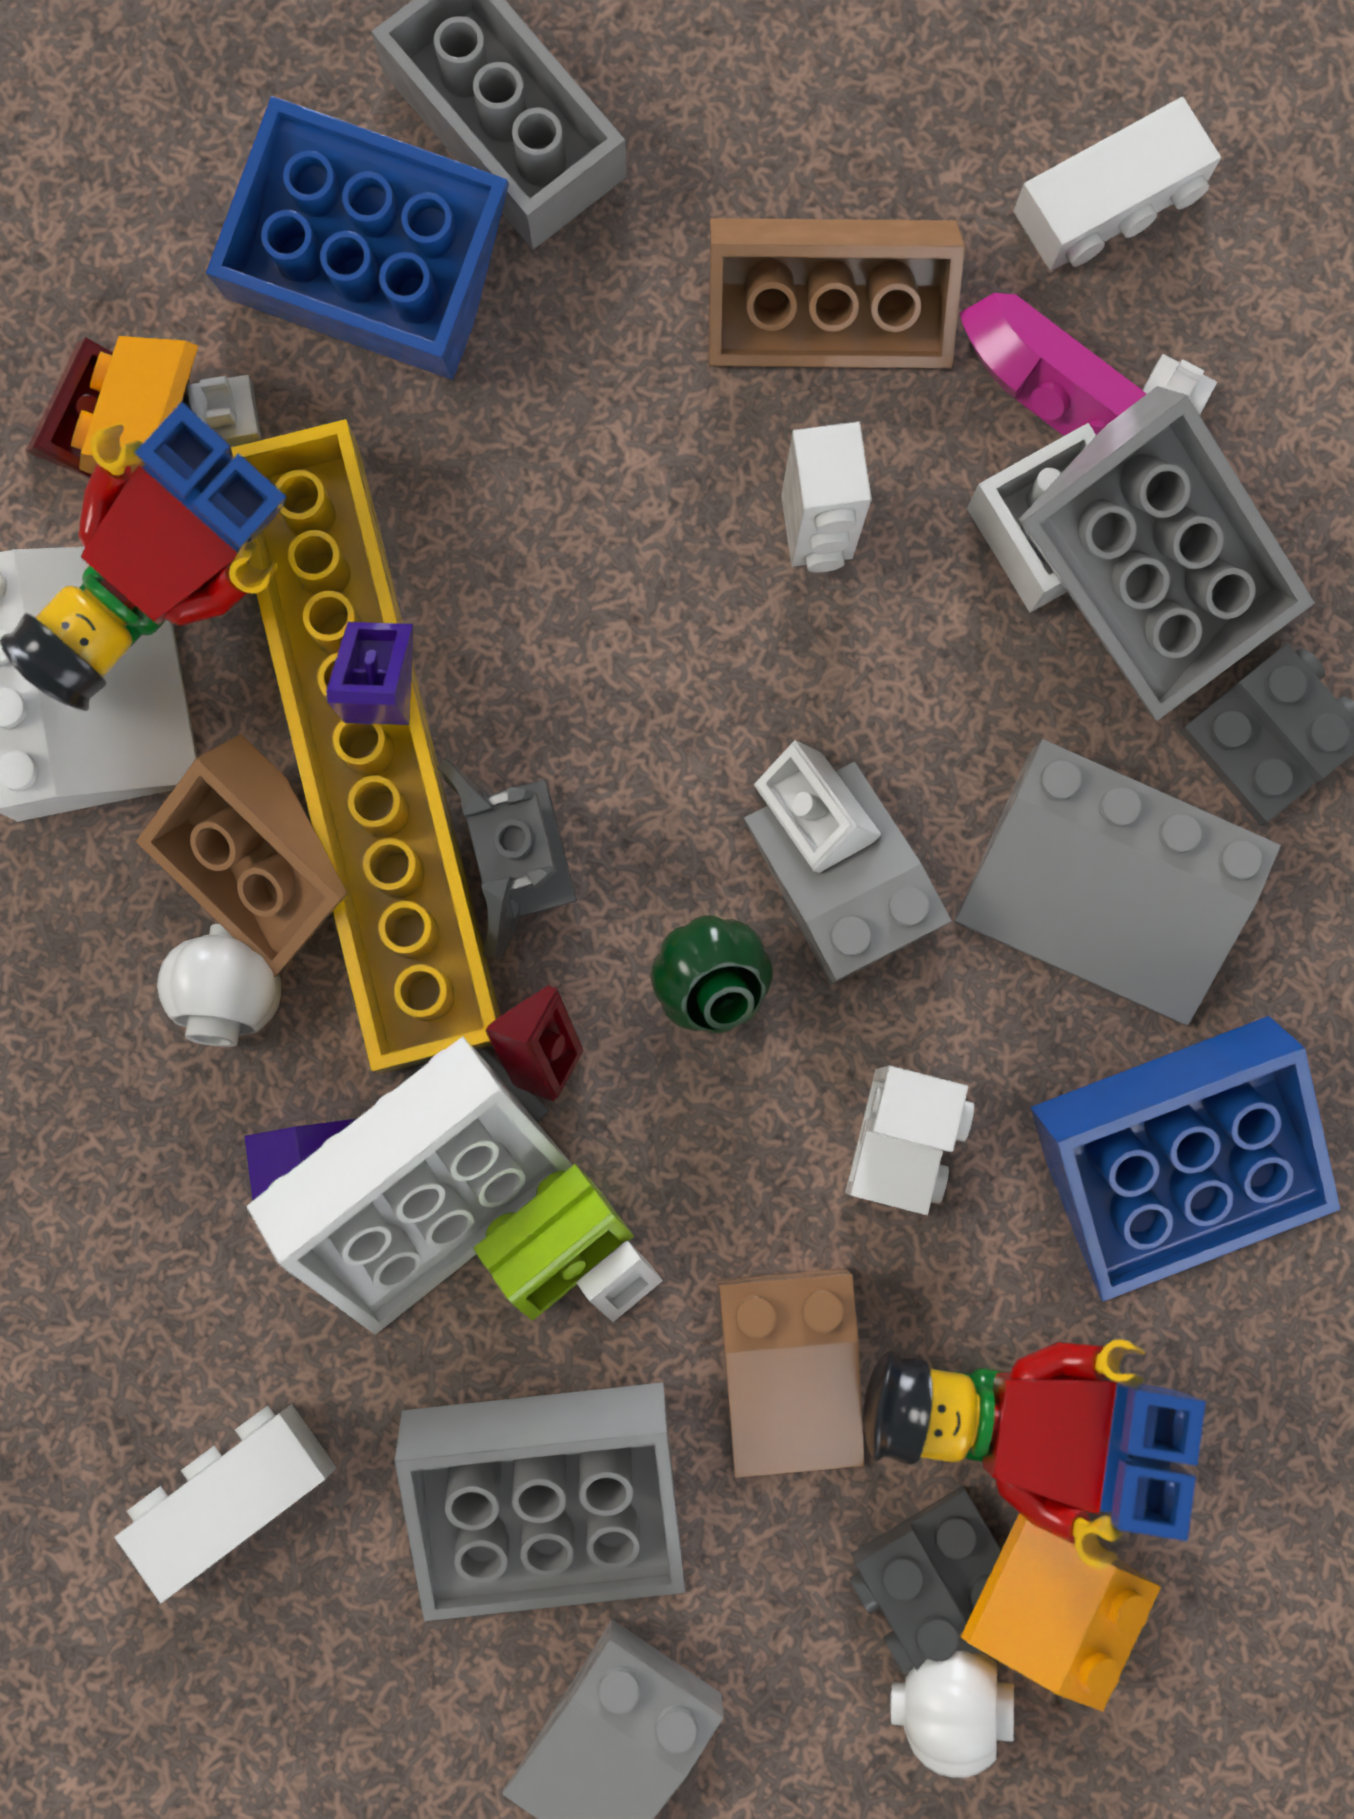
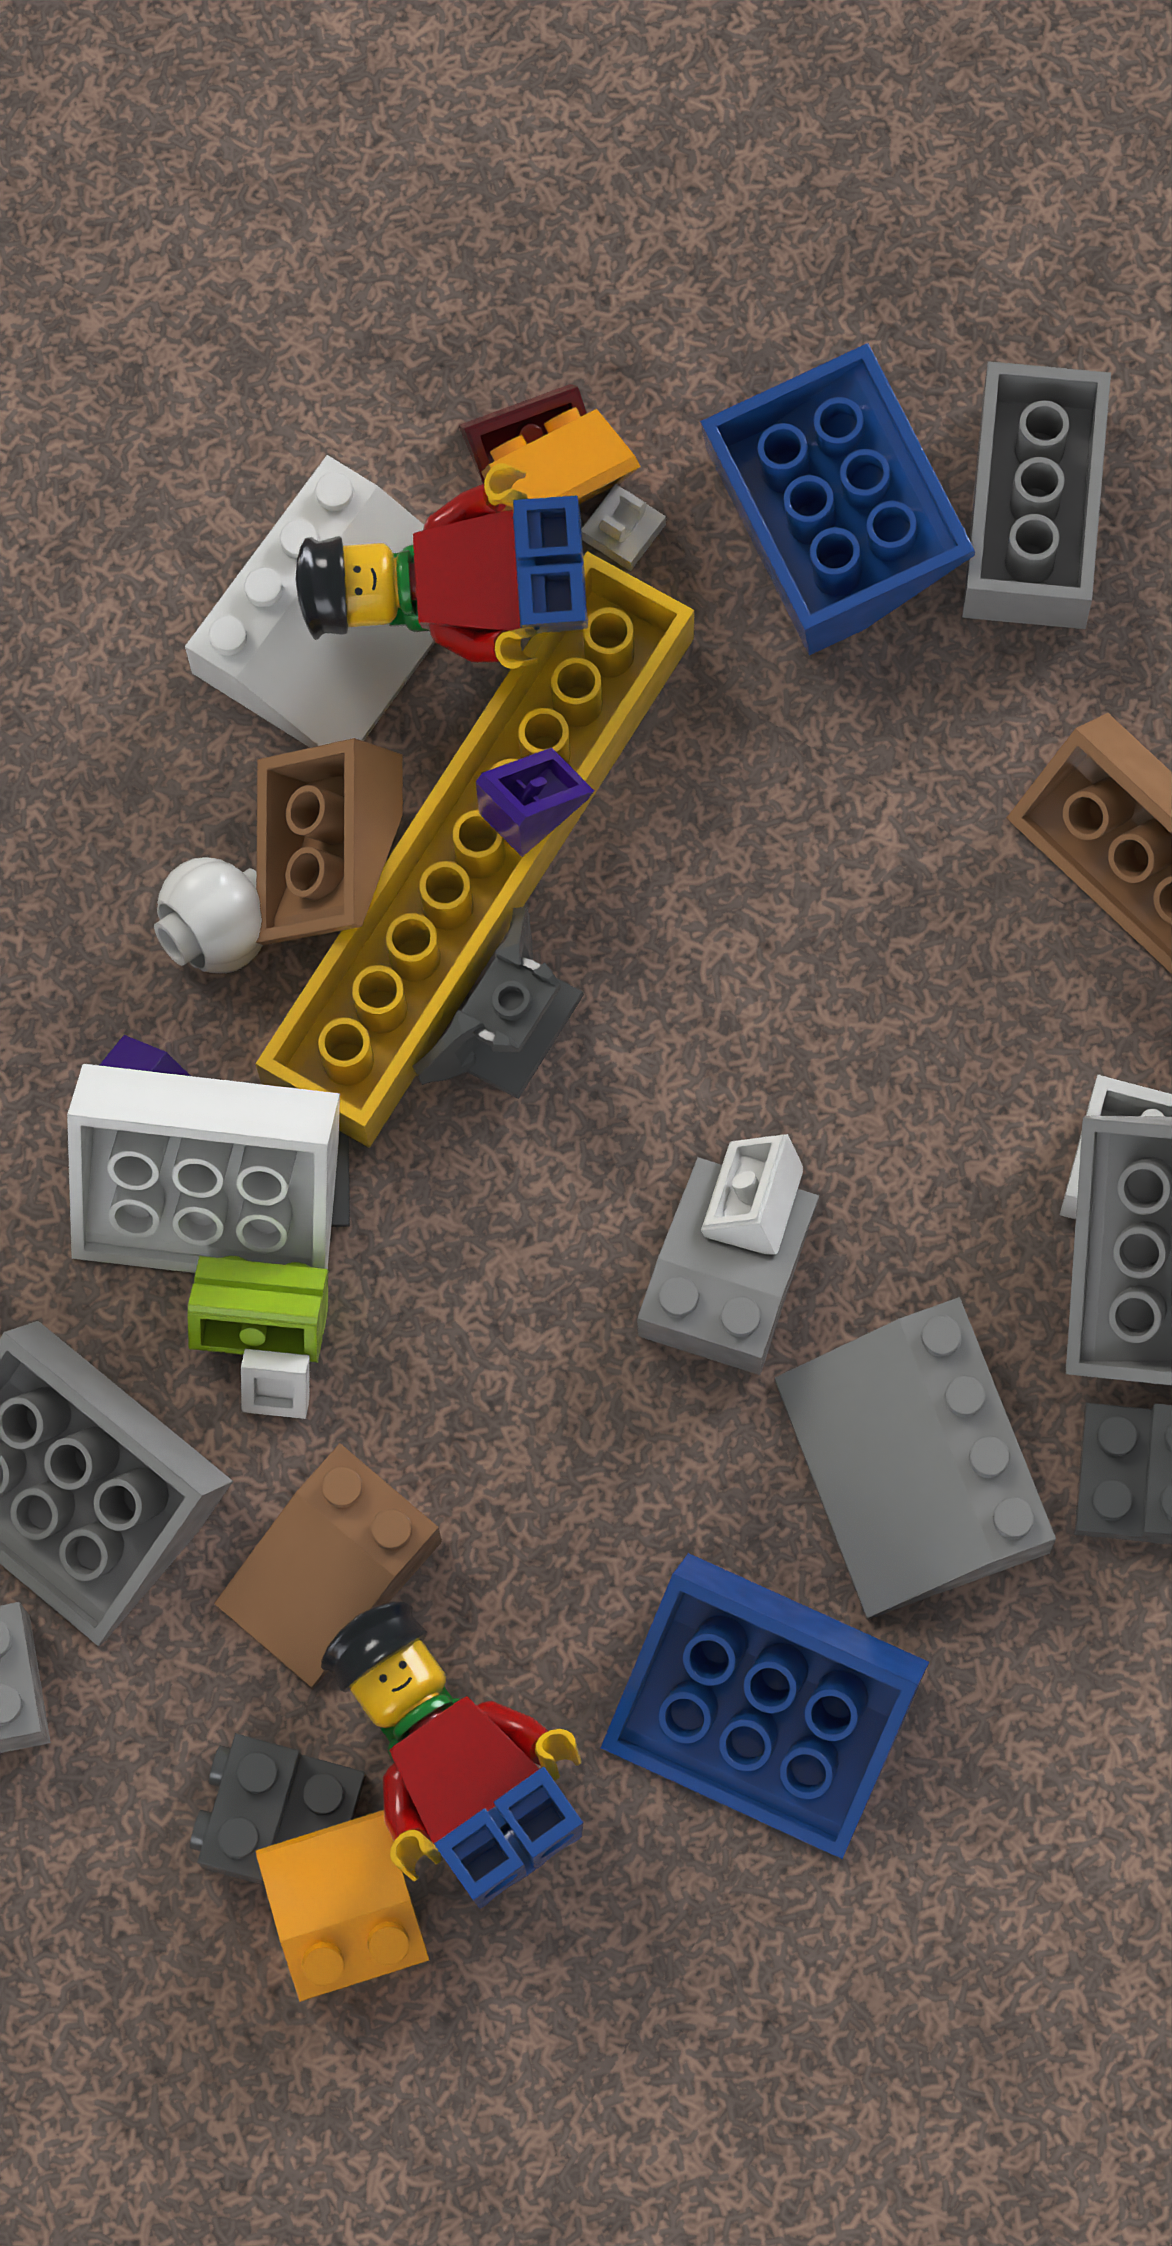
camera: 50 degrees right, 10 degrees down
(537, 1043) = (387, 1160): dark red slope -> none
(711, 974) = (556, 1233): dark green plant -> none
(825, 495) = (972, 977): white brick -> none
(903, 1138) = (576, 1481): white brick -> none
(955, 1713) = (200, 1908): white plant -> none

